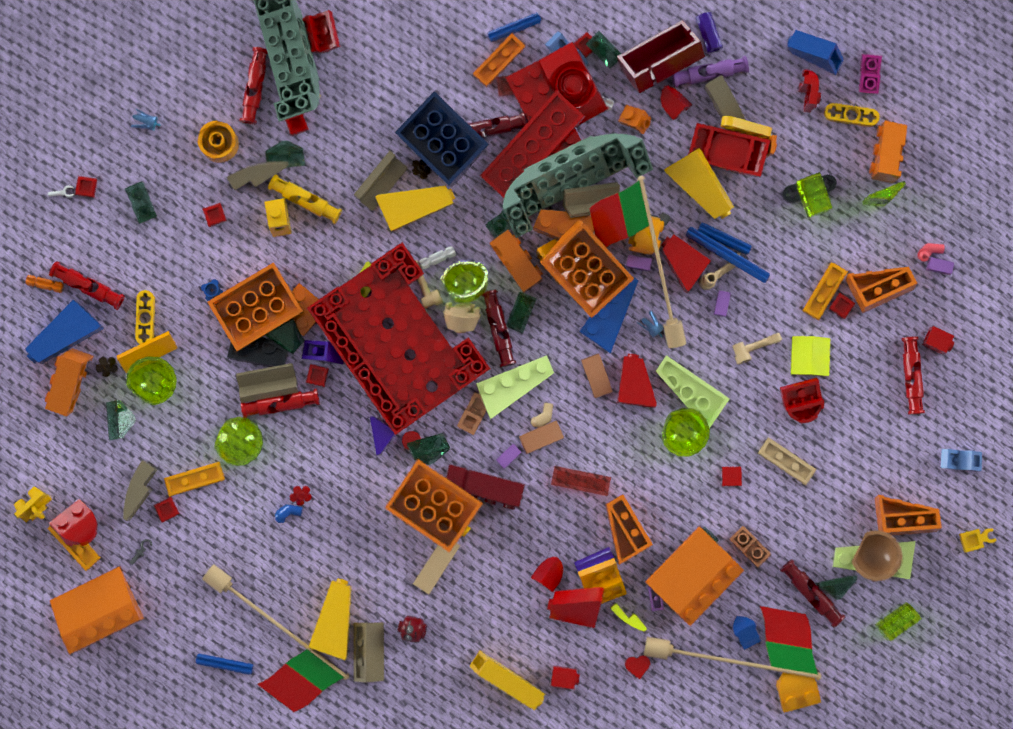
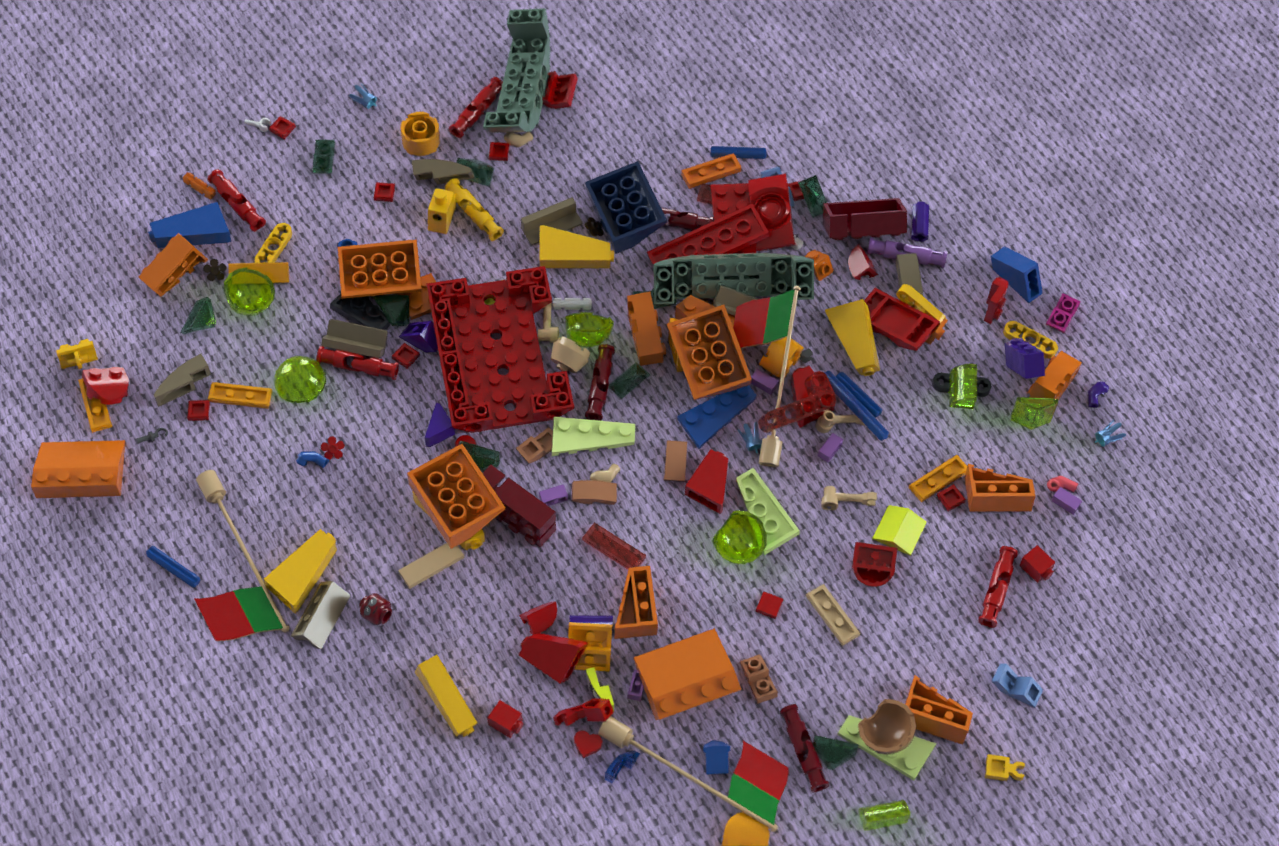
camera: 20 degrees right, 25 degrees down
(639, 637) = (593, 710): none -> red piece
(669, 304) = (796, 408): none -> clear red beam
(676, 665) = (627, 759): none -> clear blue slope
(859, 148) = (1024, 358): none -> dark purple brick
(926, 144) = (1095, 391): none -> dark purple arm
(952, 186) = (1104, 437): none -> flat silver piece

